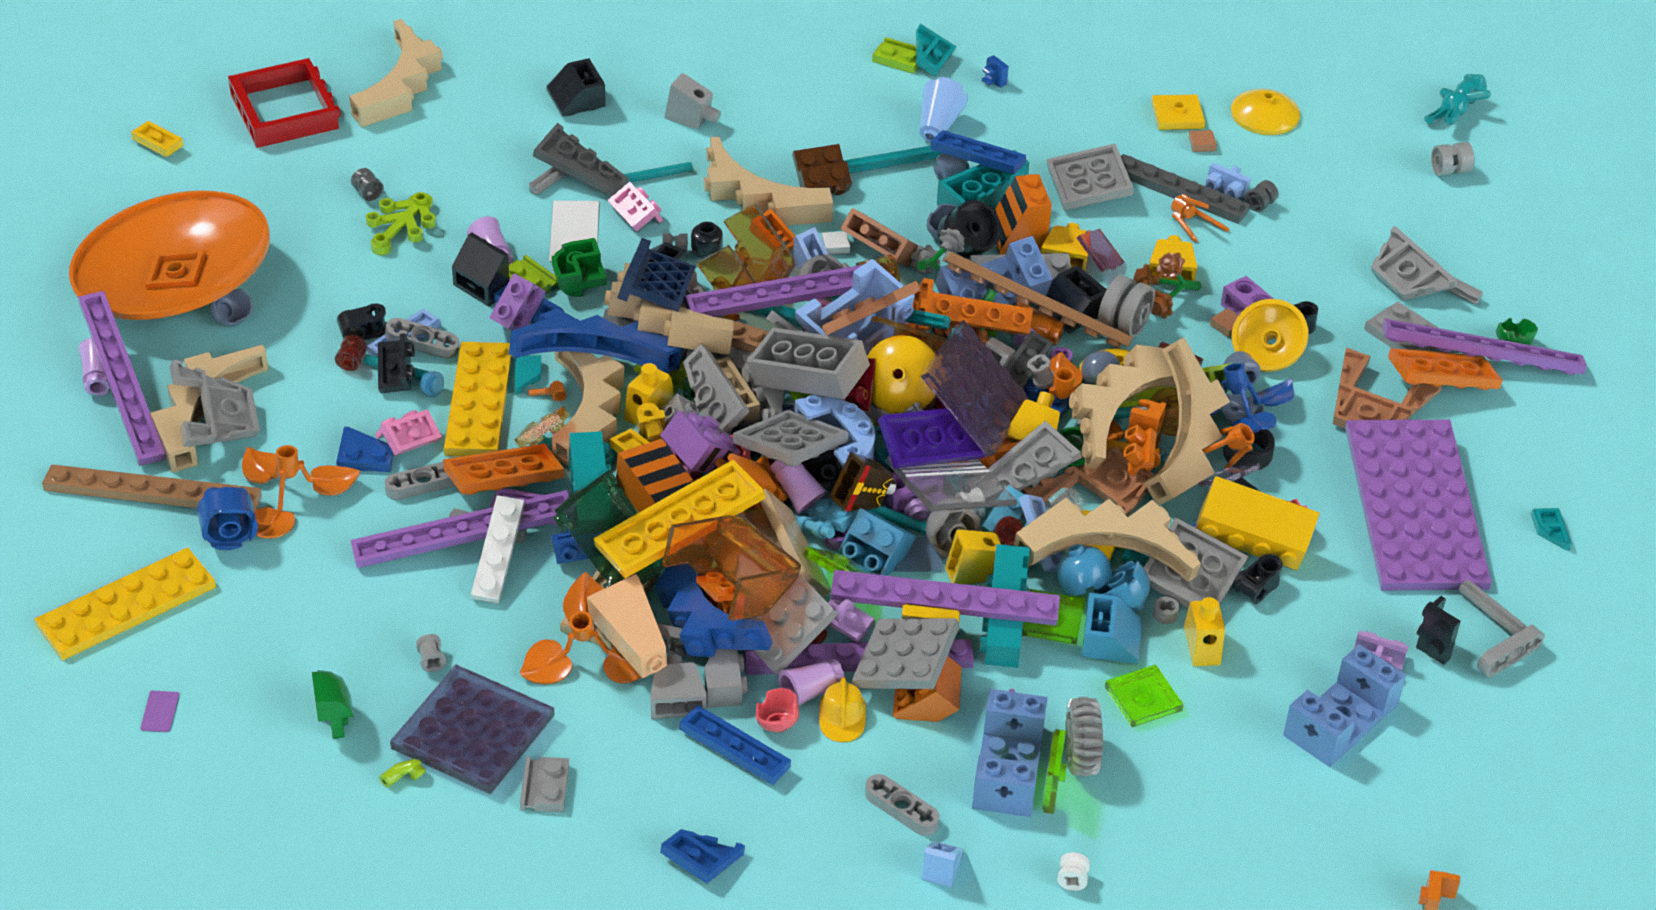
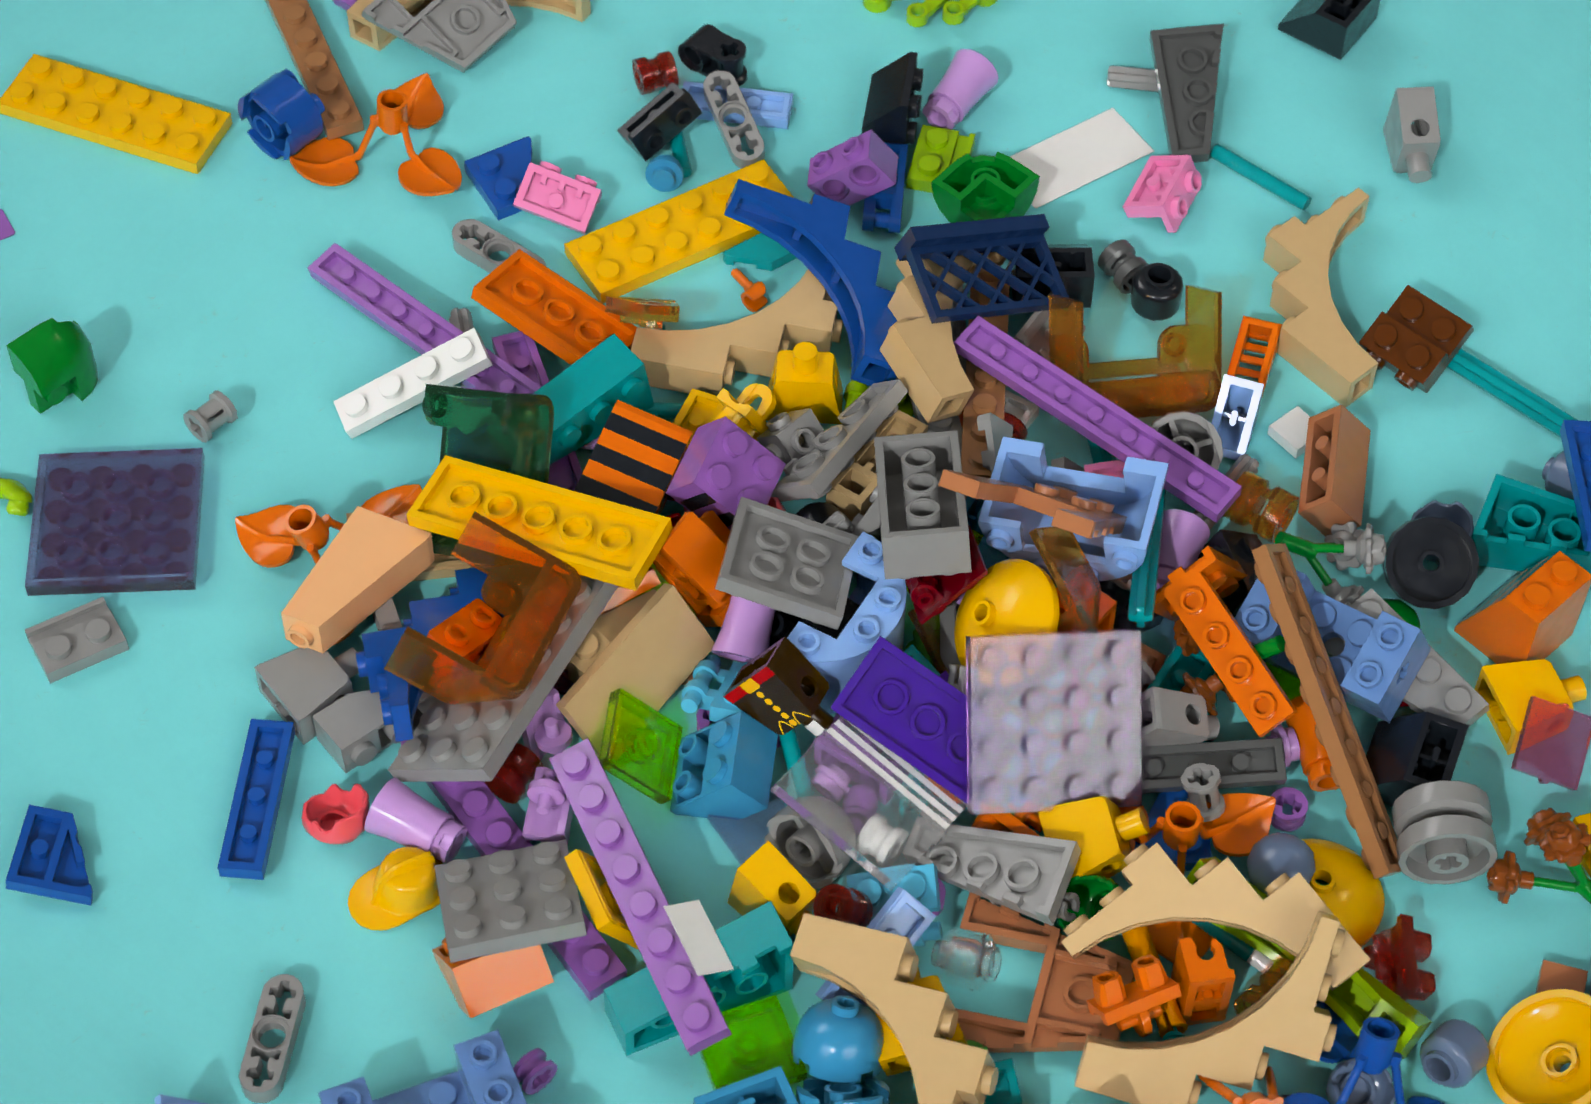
camera: 60 degrees right, 10 degrees up
(995, 582) = (698, 937): none -> white sticker

